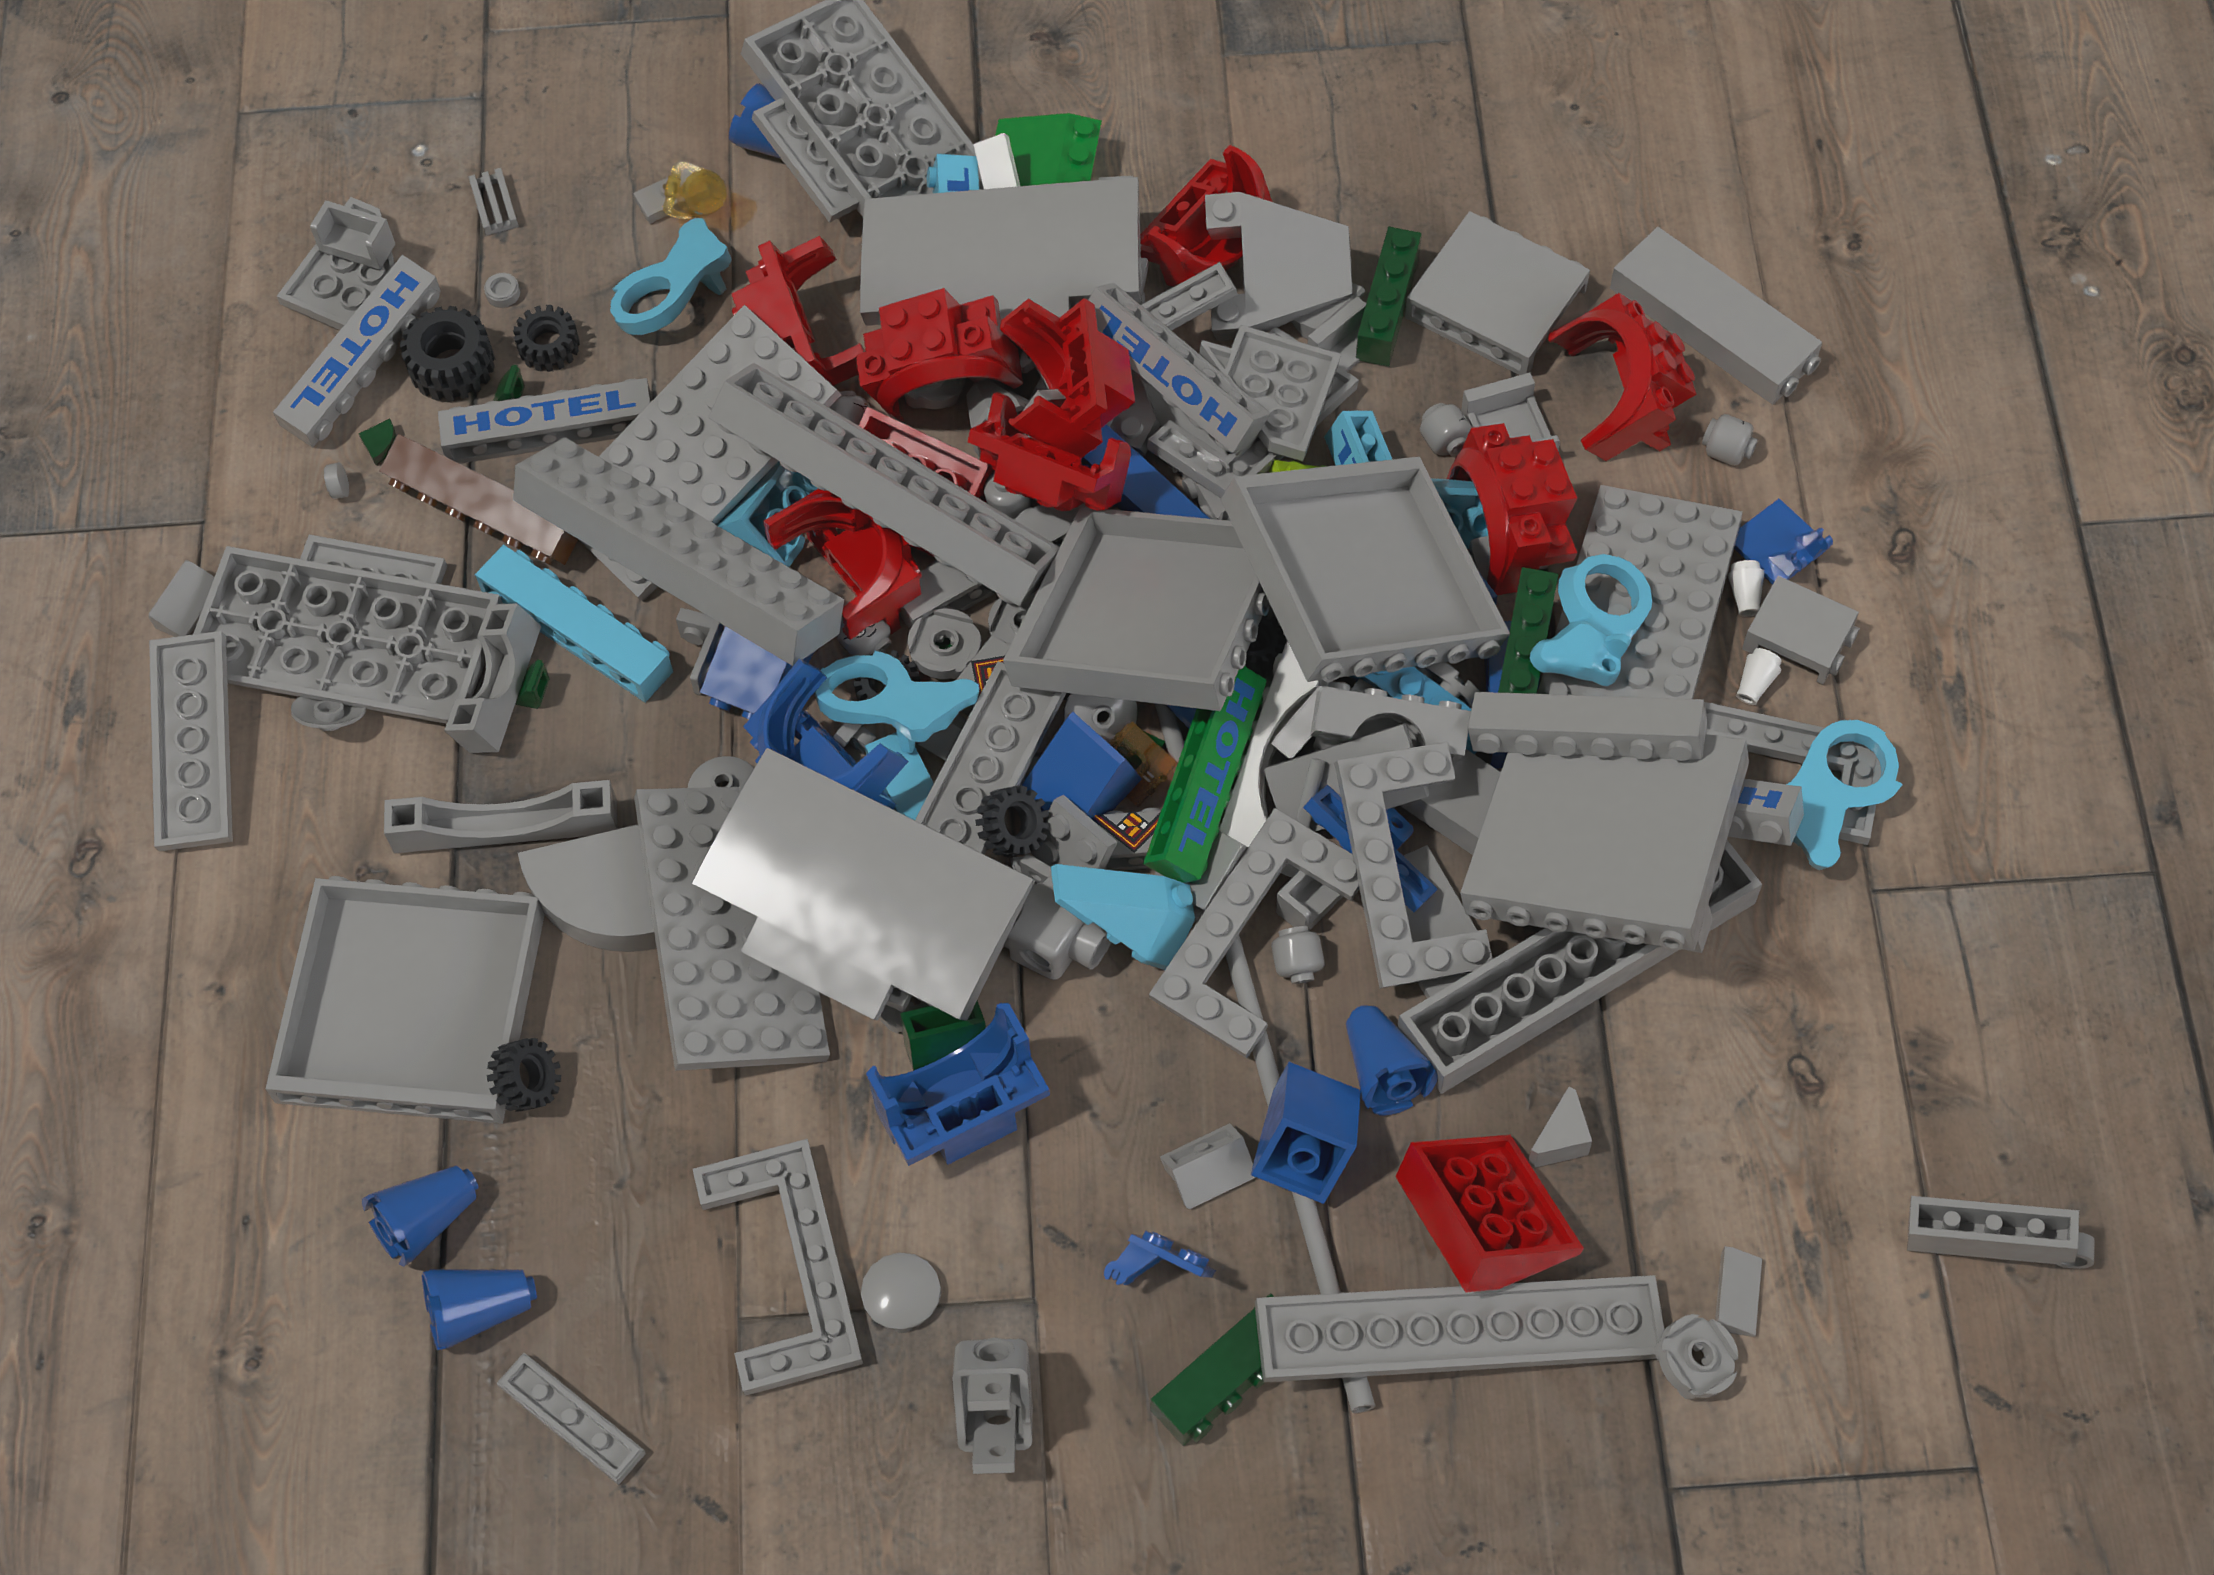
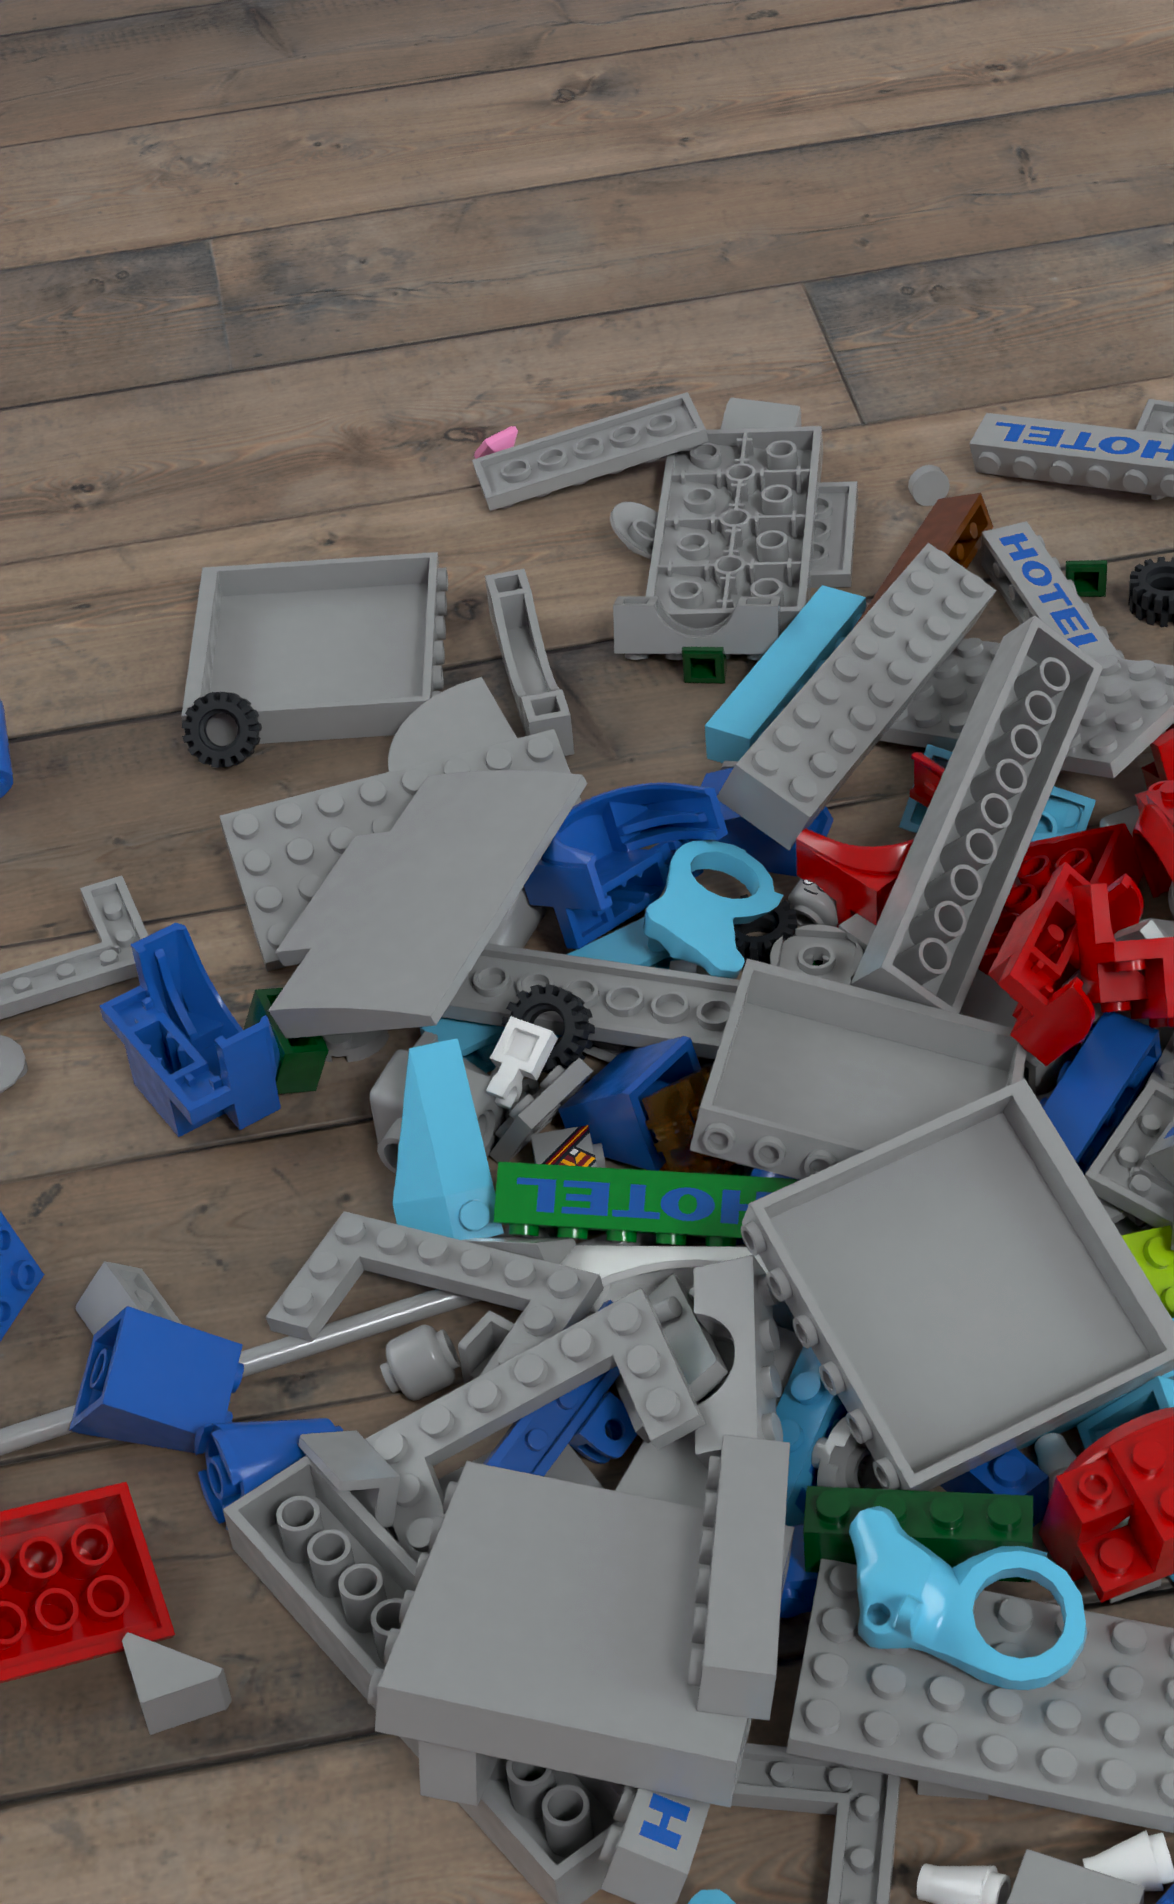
camera: 85 degrees right, 20 degrees down
(130, 825) = (497, 442): none -> bright pink slope
(378, 440) = (1001, 506): dark green tile -> none
(419, 1210) = (71, 689): blue cone -> none
(442, 332) = (1113, 519): black tyre -> none
(1045, 837) = (518, 1053): none -> white plate
(1124, 737) = (671, 1121): none -> clear orange piece
(1415, 988) = (357, 1468): none -> light grey panel

